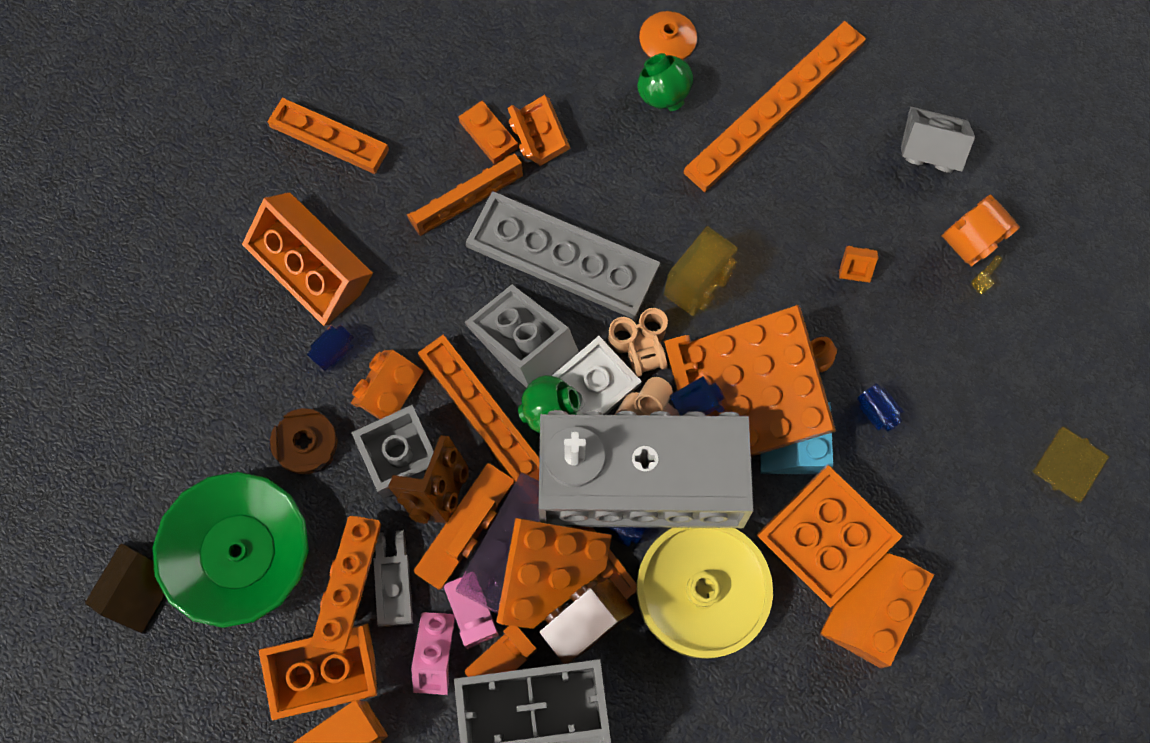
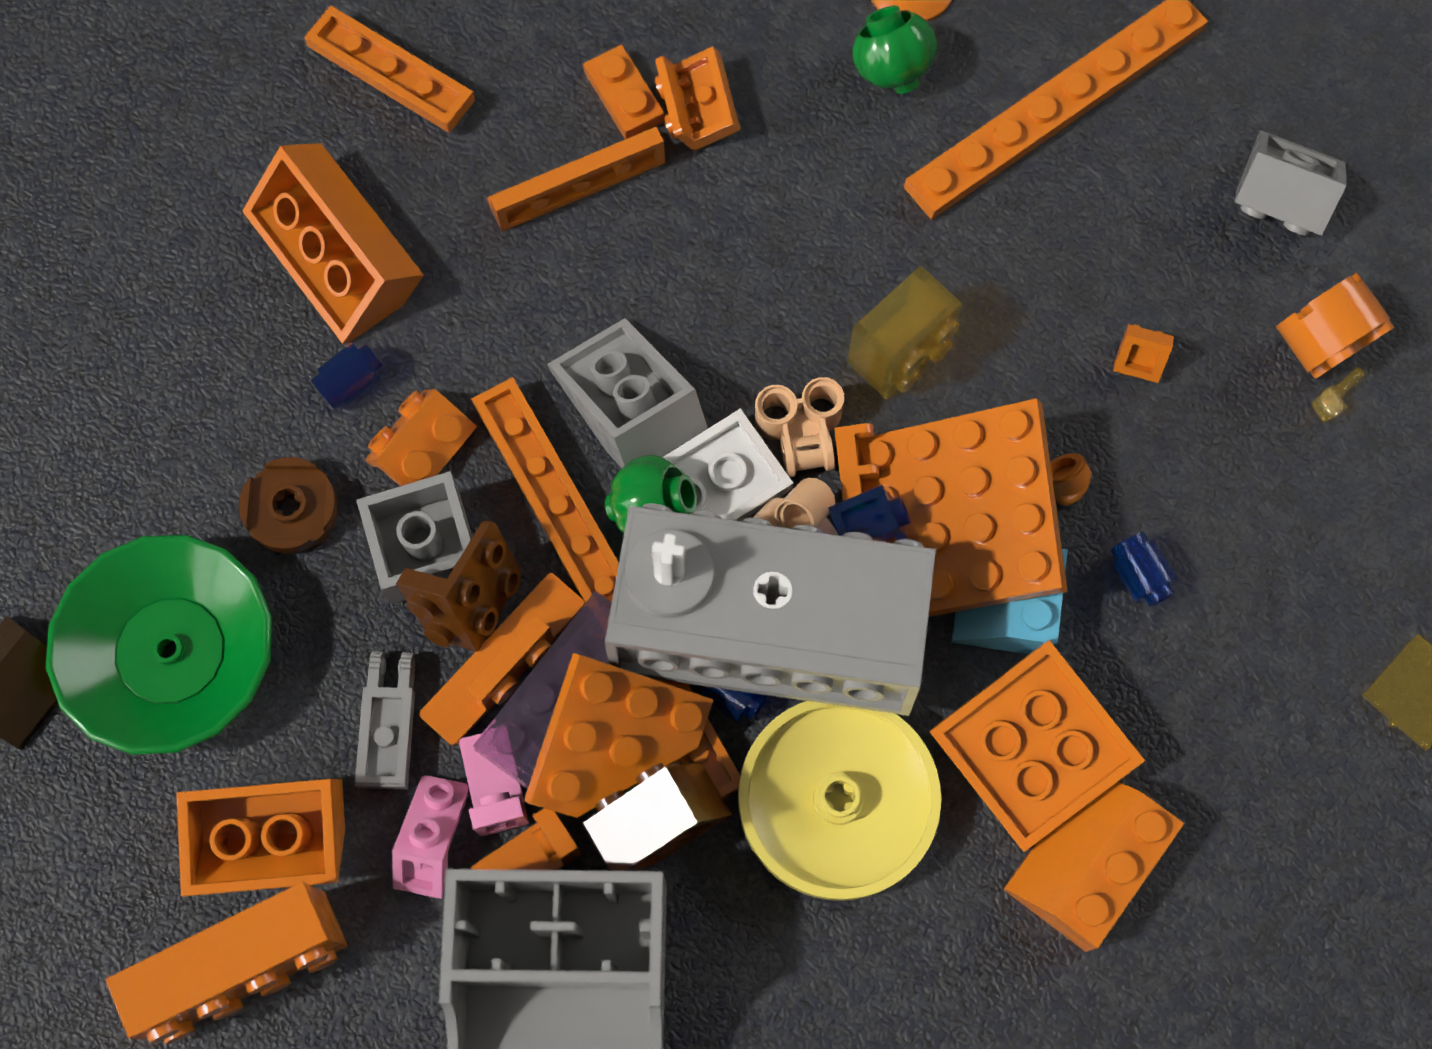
camera: 10 degrees right, 0 degrees up
(346, 584) = (316, 717): orange bracket -> none
(563, 255) = (706, 284): light grey plate -> none

